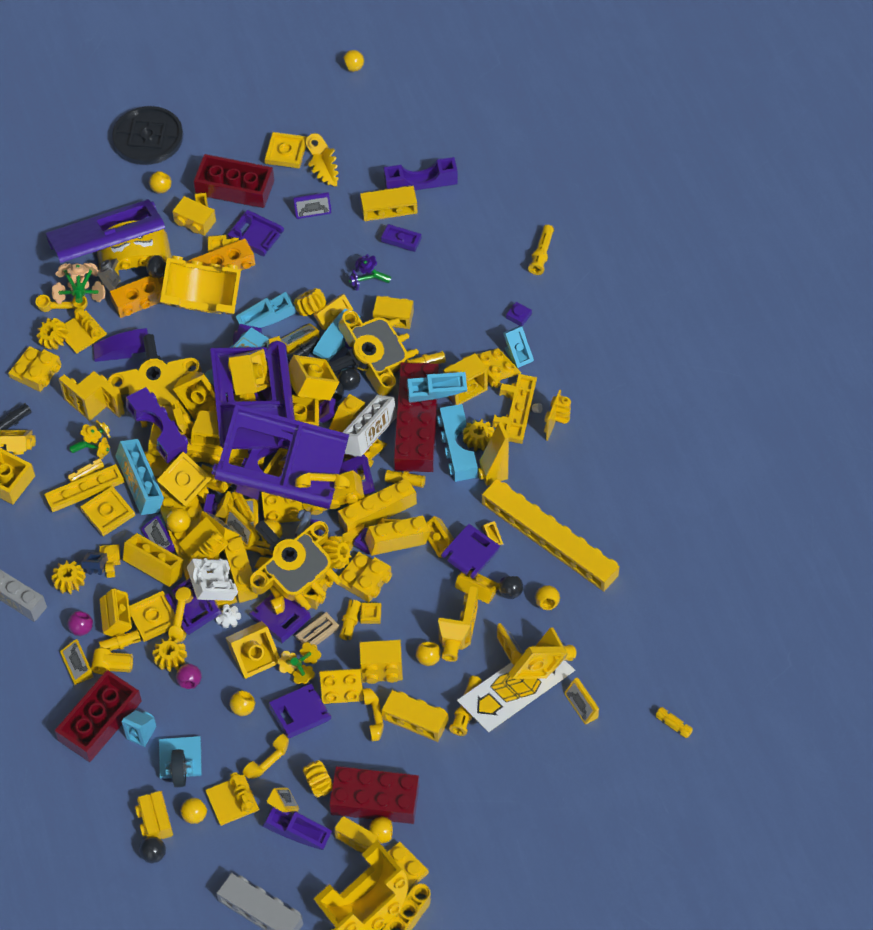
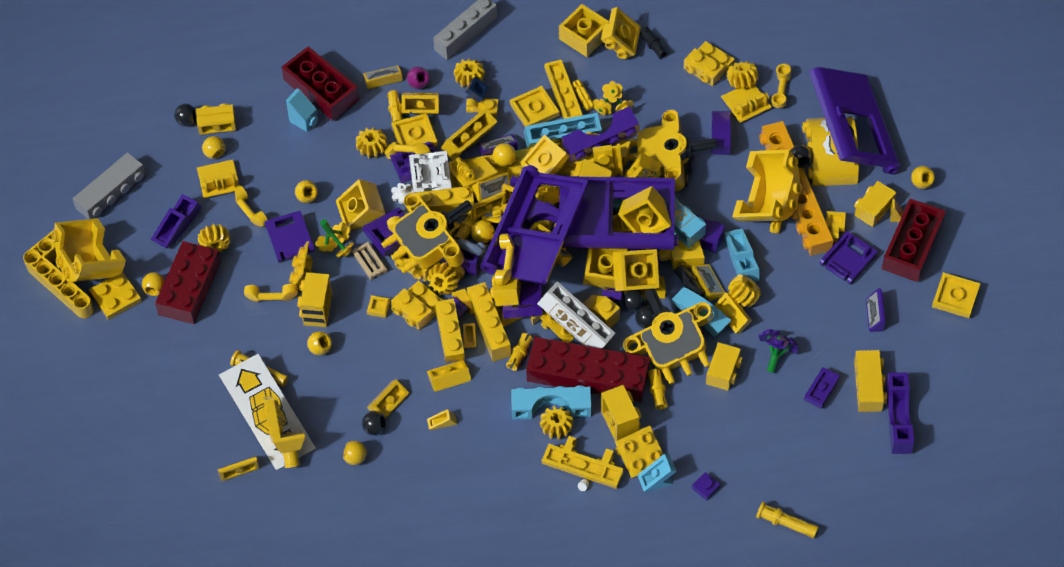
camera: 100 degrees right, 0 degrees up
(78, 282) = (792, 83): light nougat plant -> none
(92, 395) = (659, 96): yellow bracket -> none
(106, 660) = (375, 97): yellow piece -> none
(108, 274) = (798, 117): flat silver bracket -> none
(147, 135) = (991, 173): black plate -> none
(180, 759) = (262, 142): medium azure plate -> none
(188, 676) = (345, 154): magenta piece -> none
(283, 800) = (197, 209): yellow slope -> none
(322, 159) = (936, 323): yellow plant -> none
(350, 620) = (373, 287): yellow pin -> none
(354, 835) = (151, 261): yellow slope -> none
(415, 715) = (258, 325): yellow brick -> none
(436, 386) = (602, 373): medium azure slope -> none
(458, 634) = (335, 373): yellow plate -> none
(469, 553) = (416, 389): dark purple container -> none
(495, 457) = (519, 425): yellow wedge -> none
(508, 643) = (310, 412): yellow slope -> none
(550, 535) = (425, 468): yellow brick -> none
(560, 412) = (565, 490): yellow hinge -> none
(674, 722) = (195, 543): yellow axle -> none

